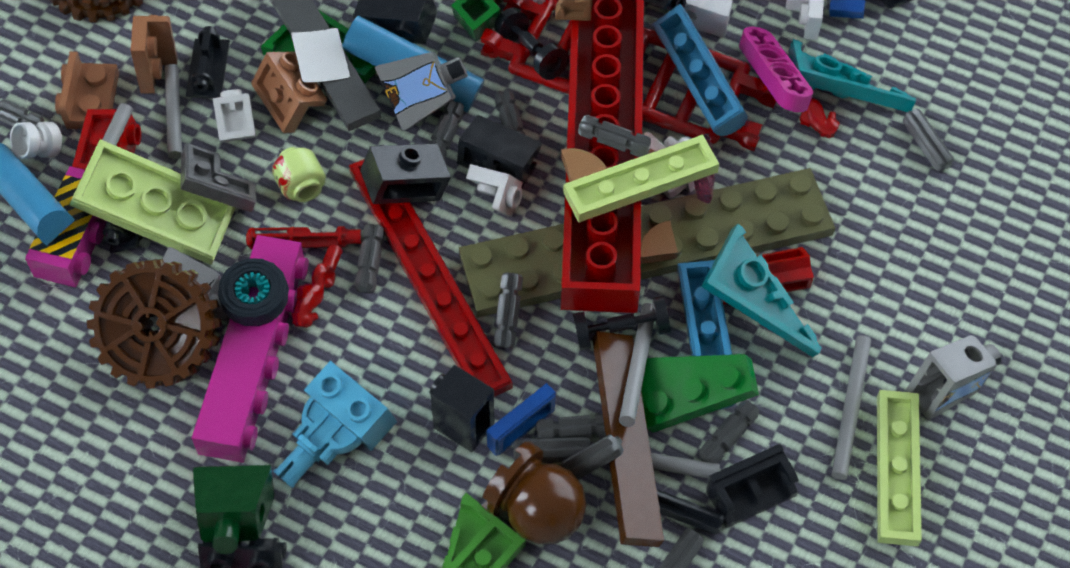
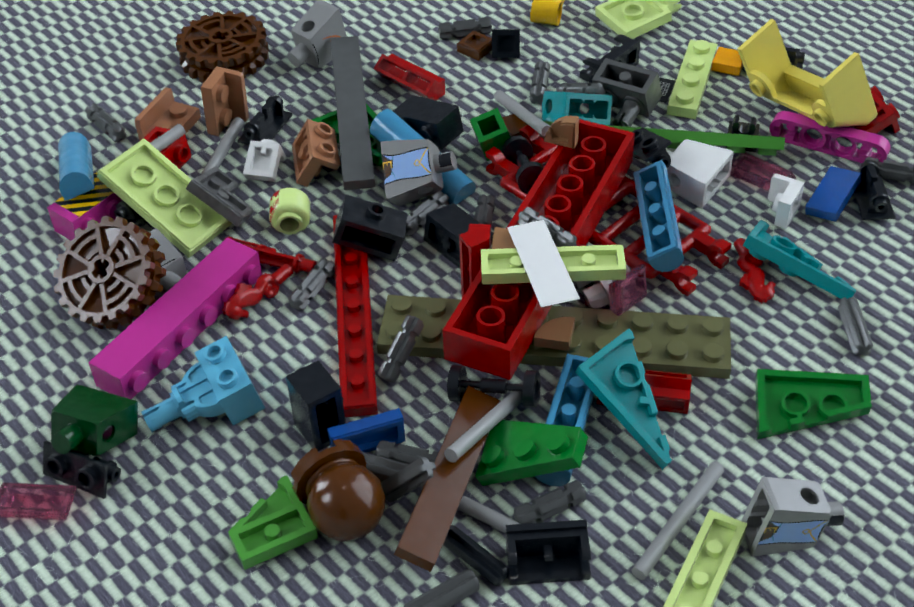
camera: 25 degrees right, 15 degrees down
(32, 140) = (107, 138): white wheel -> none
(236, 286) = (191, 261): black bush -> none
(320, 55) = (348, 131): white sticker -> none
(500, 185) = (443, 259): white bracket -> none
(546, 189) = (471, 243): none -> red piece
(634, 182) = (543, 263): none -> white sticker
(776, 69) = (729, 232): dark pink beam -> none
(916, 238) = (807, 399): none -> green wing

